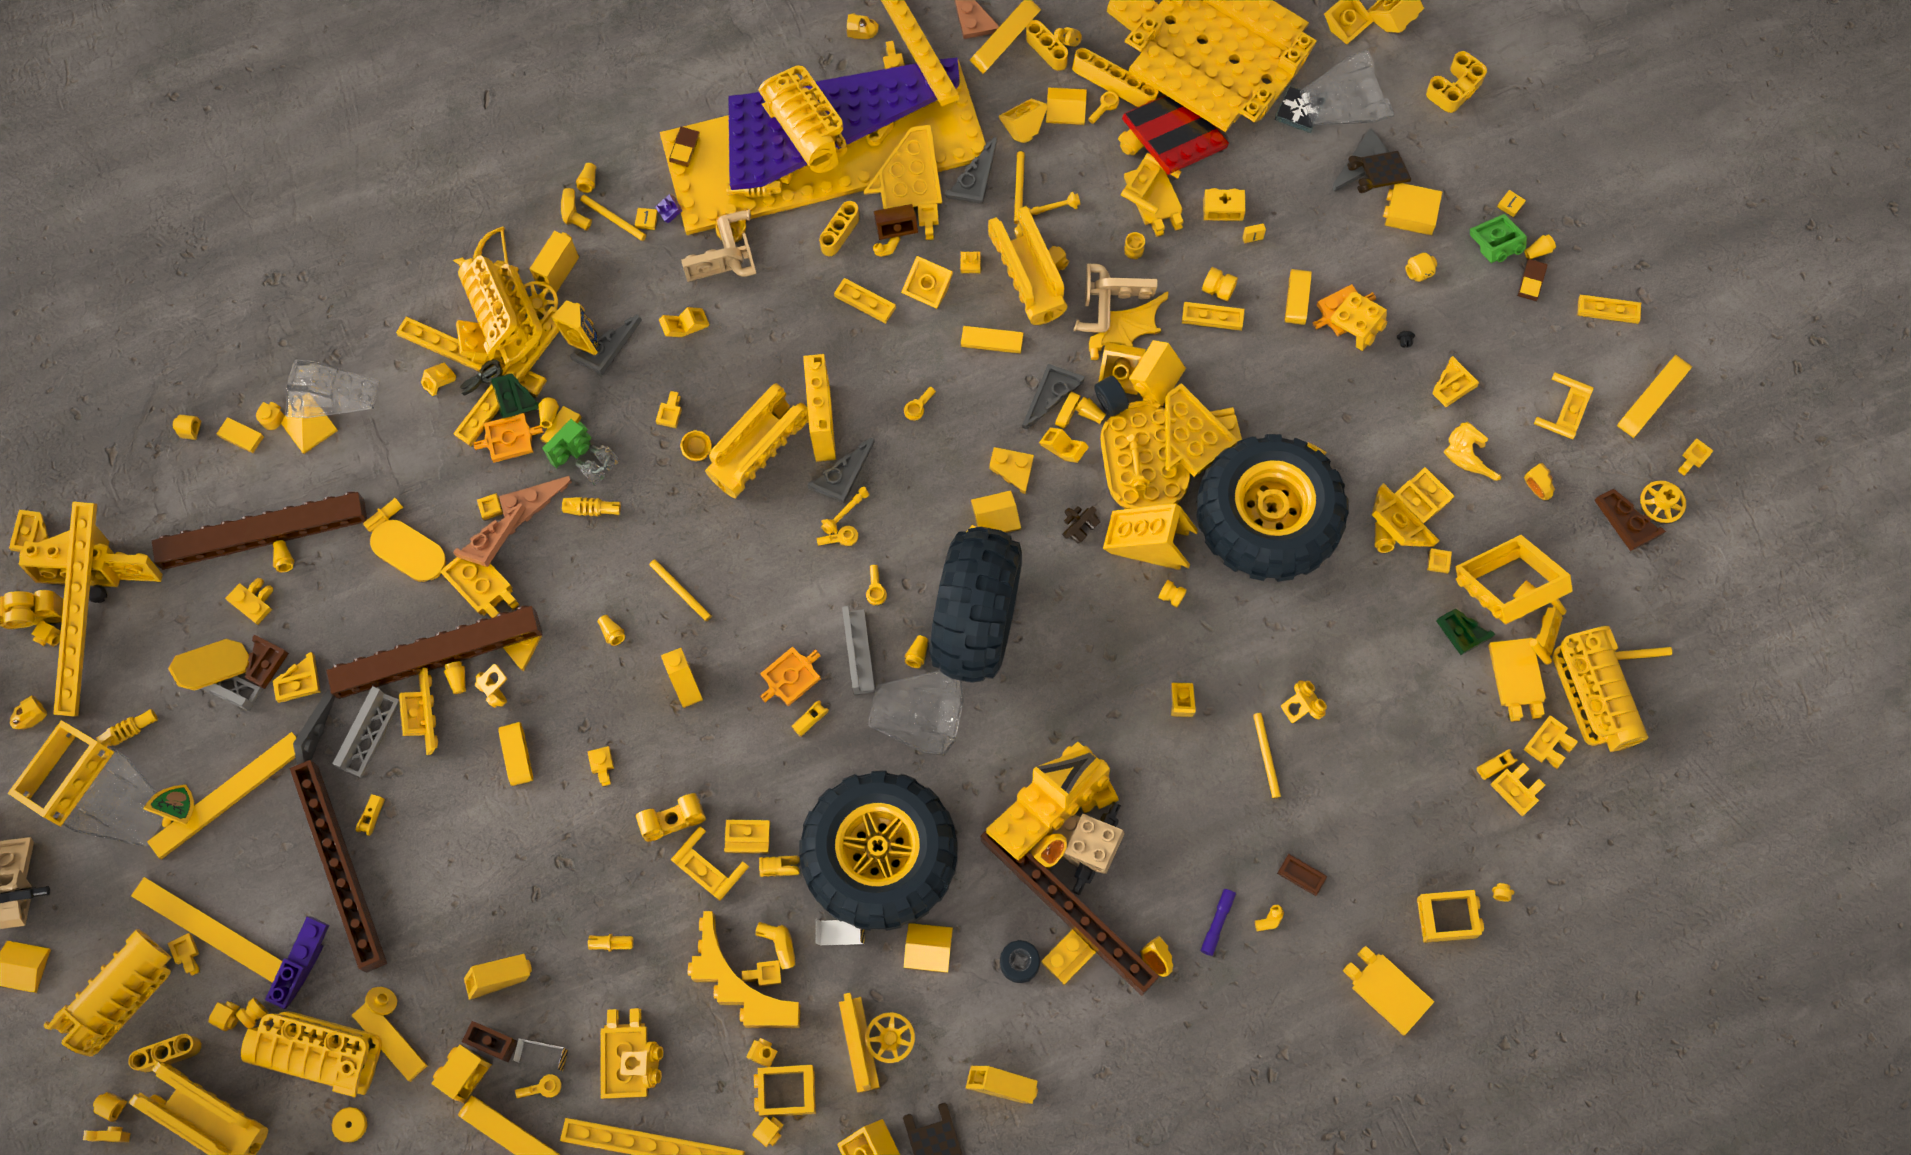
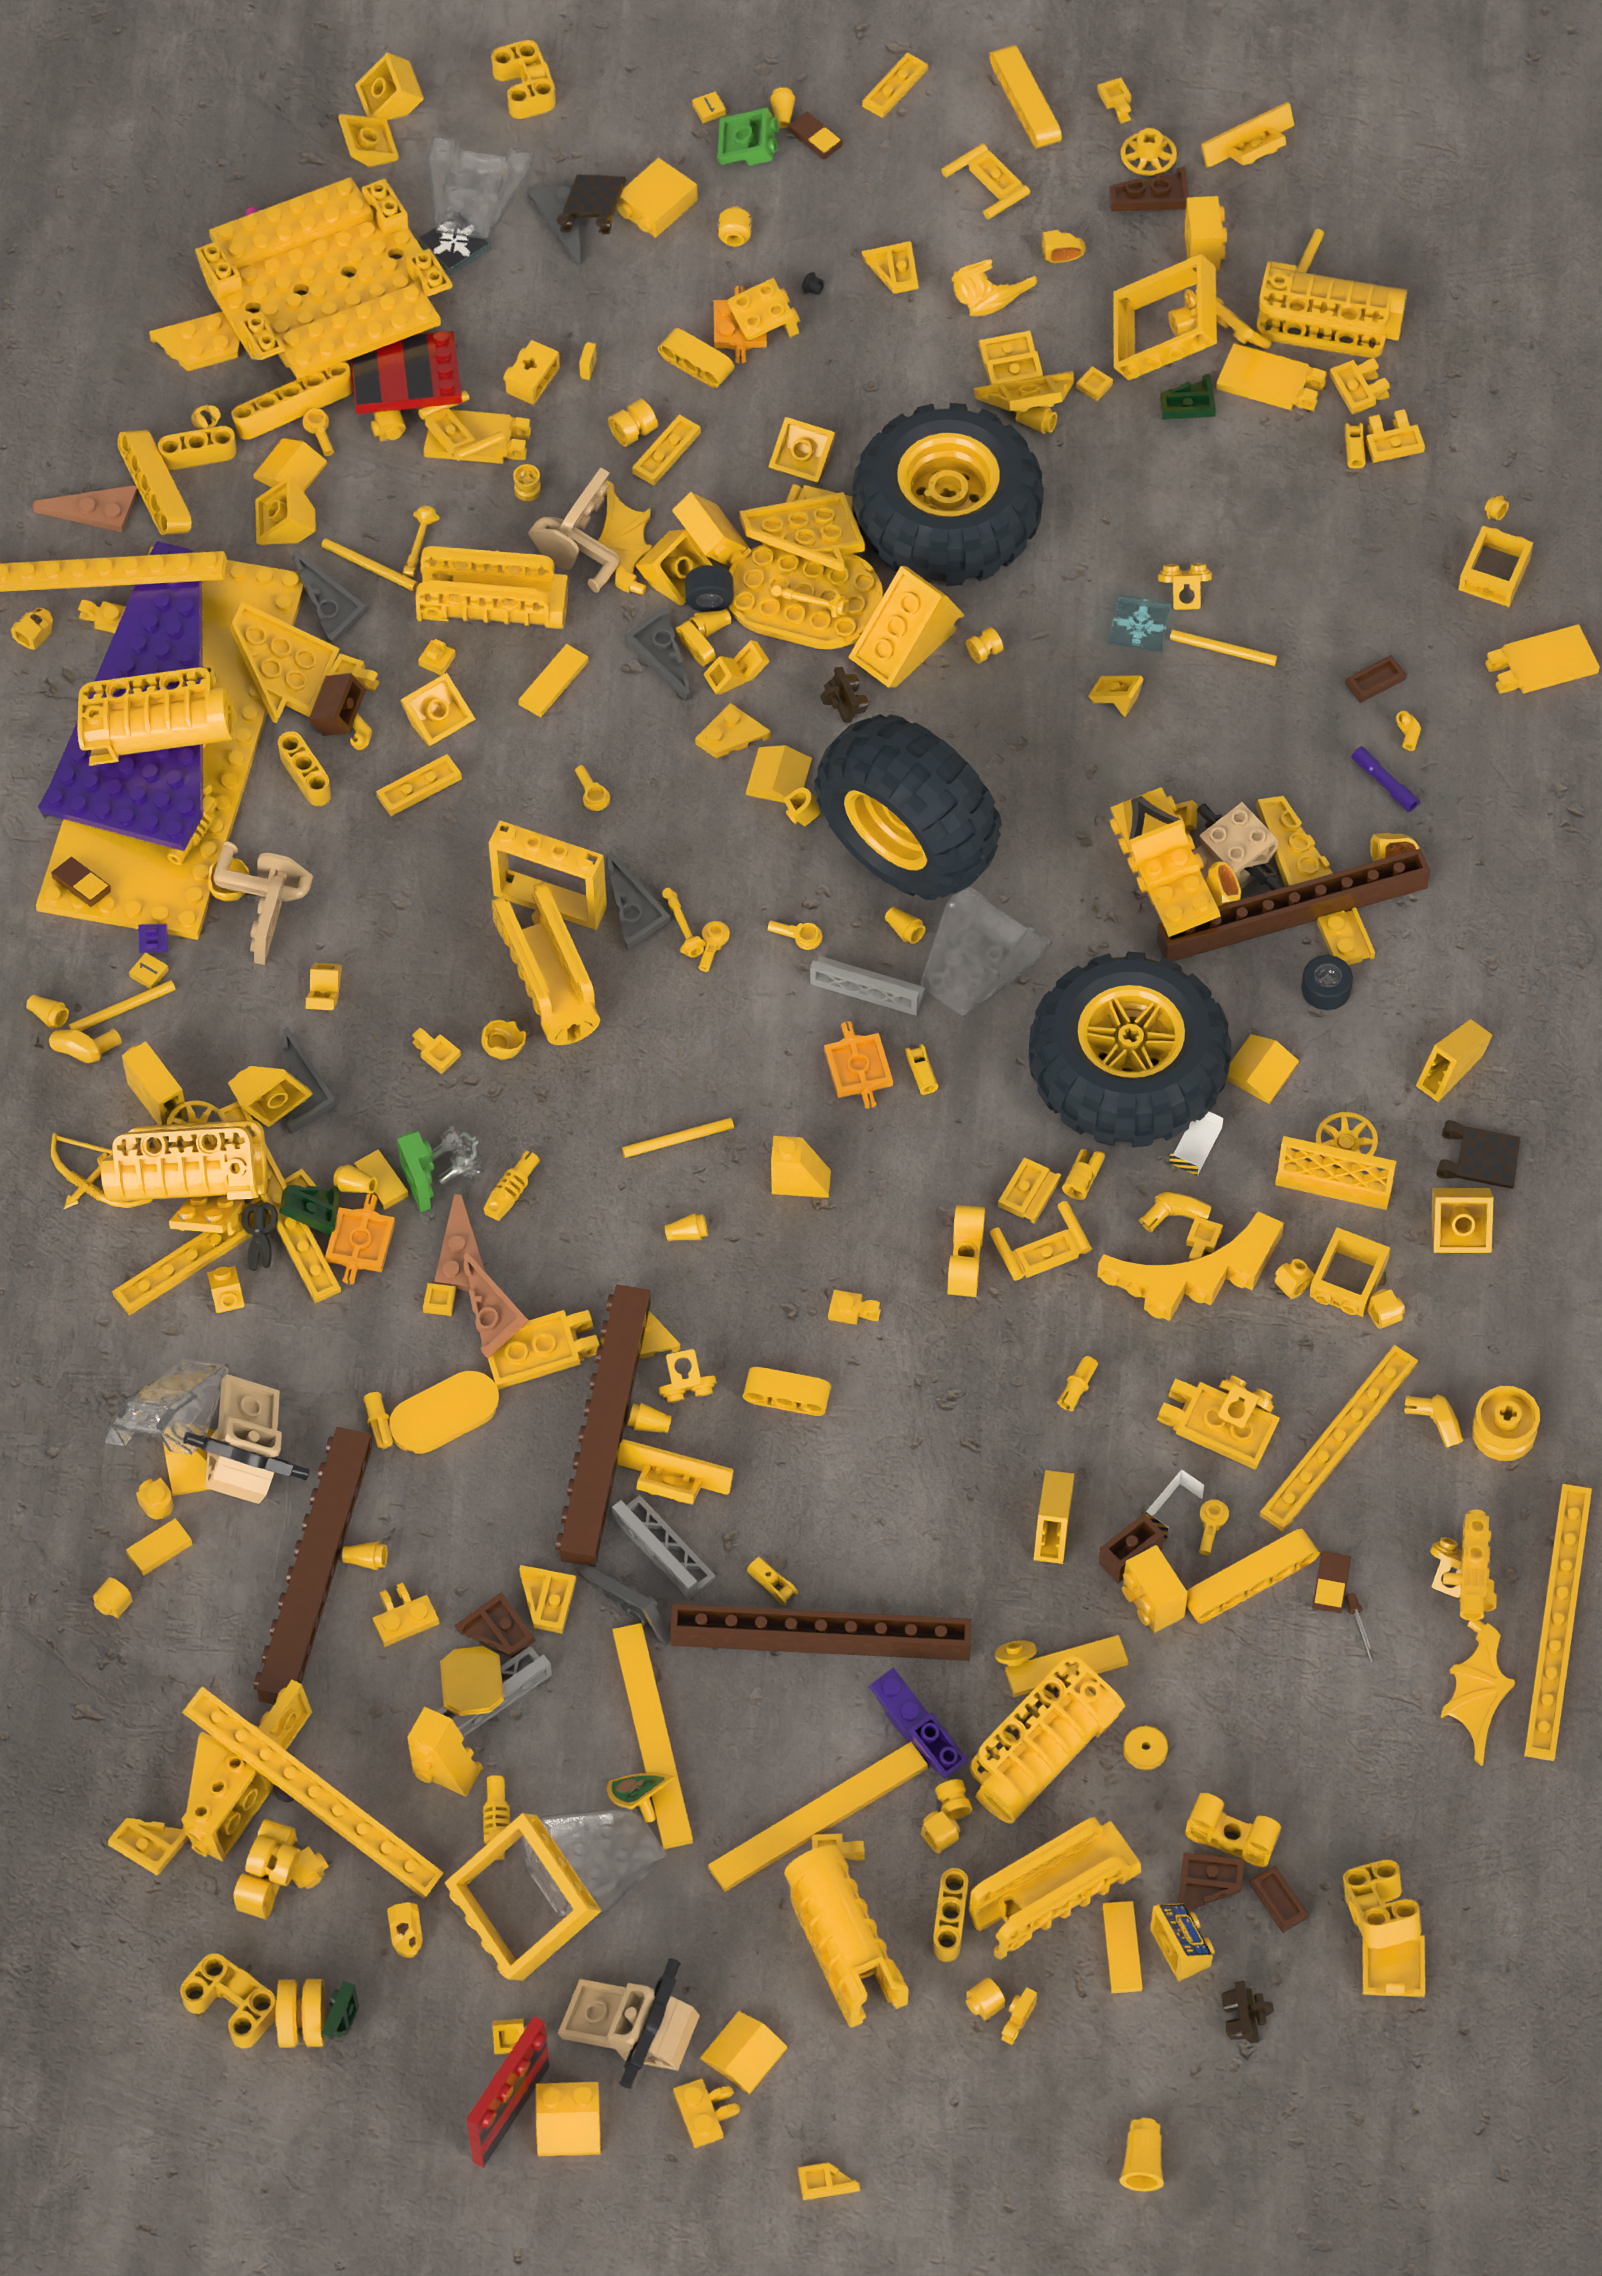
camera: 65 degrees left, 10 degrees down
(145, 672) = (439, 1753): none -> yellow wedge
(322, 443) = (246, 1442): none -> tan piece
(1117, 889) = (1296, 852): none -> yellow wing
(1254, 688) = (1140, 623): none -> clear light blue tile
(1263, 399) = (802, 450): none -> yellow slope
(1609, 571) = (1204, 229): none -> yellow brick
(1719, 564) = (1251, 138): none -> yellow bracket

